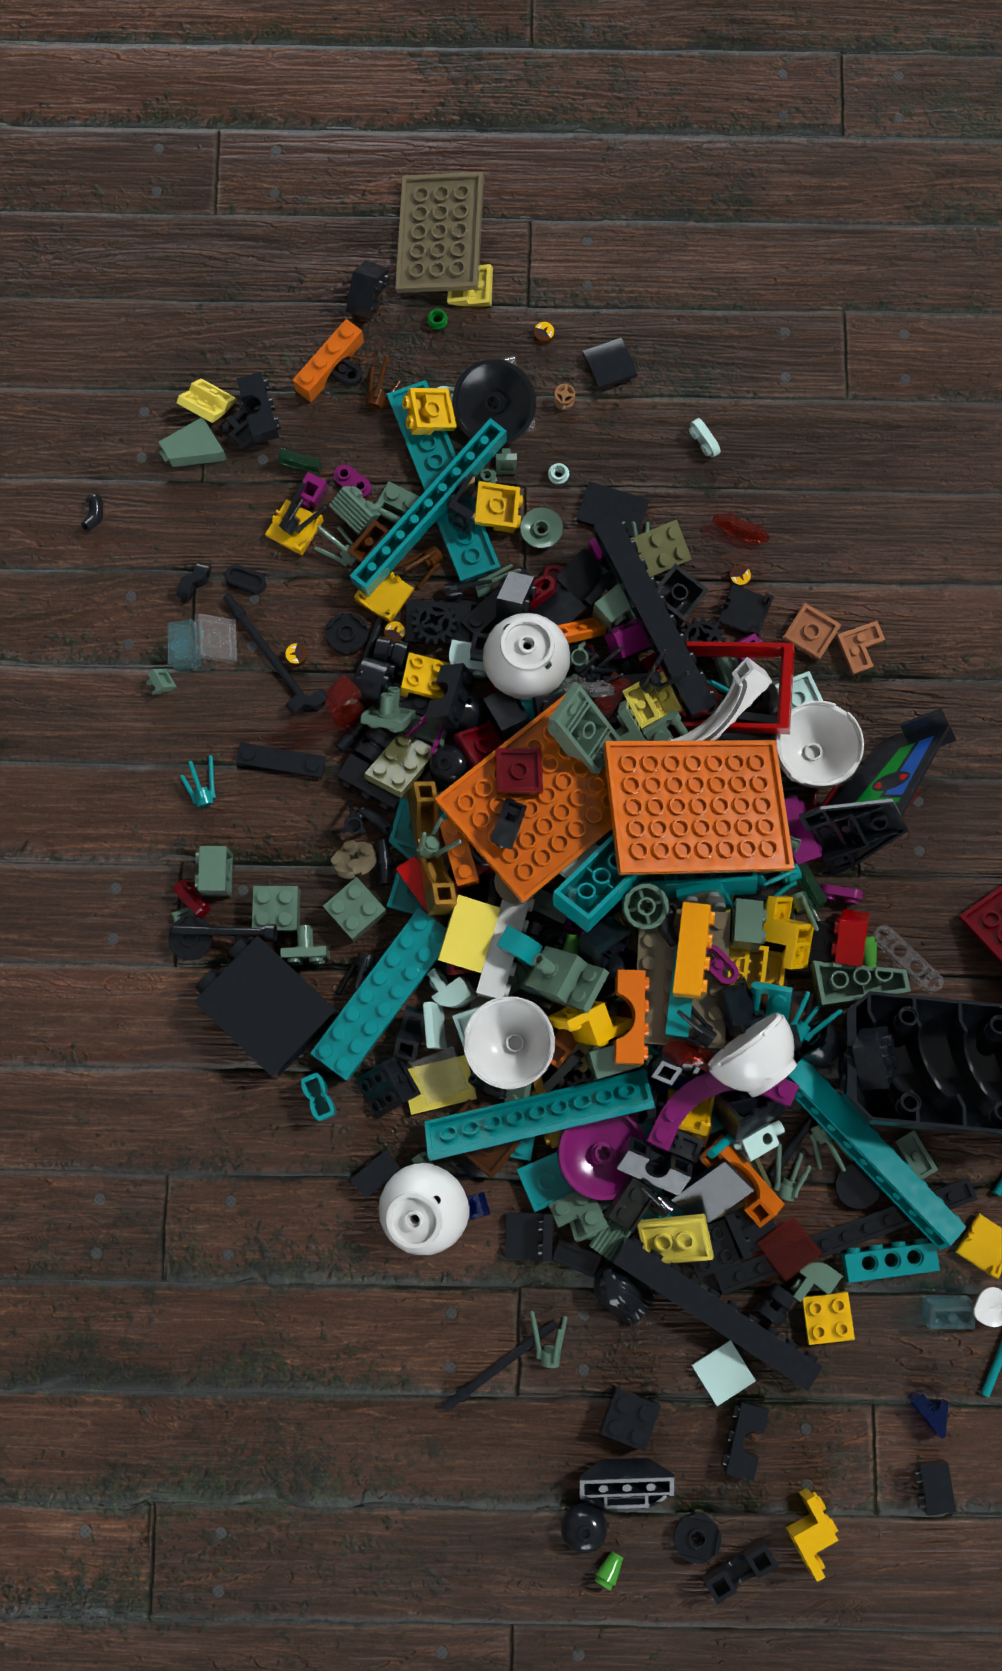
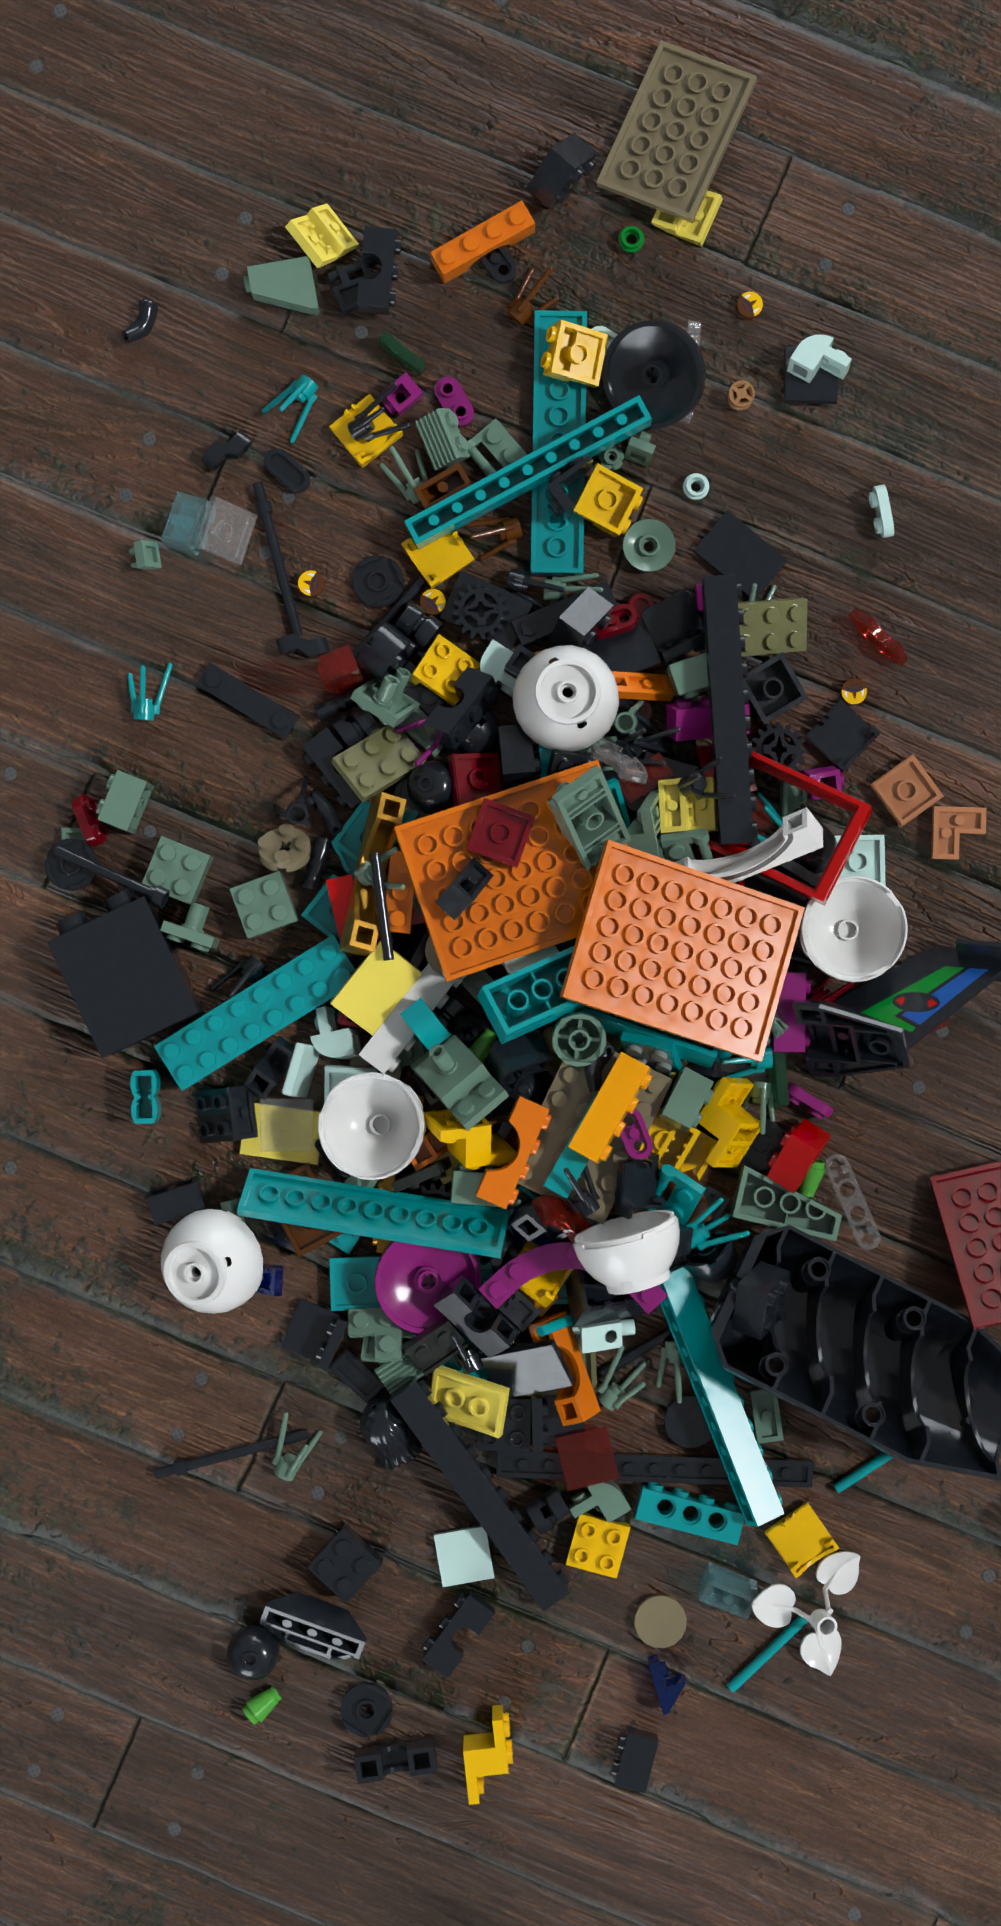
camera: 25 degrees right, 10 degrees up
(233, 516) = (302, 390): none -> teal plant
(448, 865) = (381, 904): none -> black bar
(609, 343) = (817, 353): none -> light aqua brick
(904, 1361) = (660, 1621): none -> dark tan tile

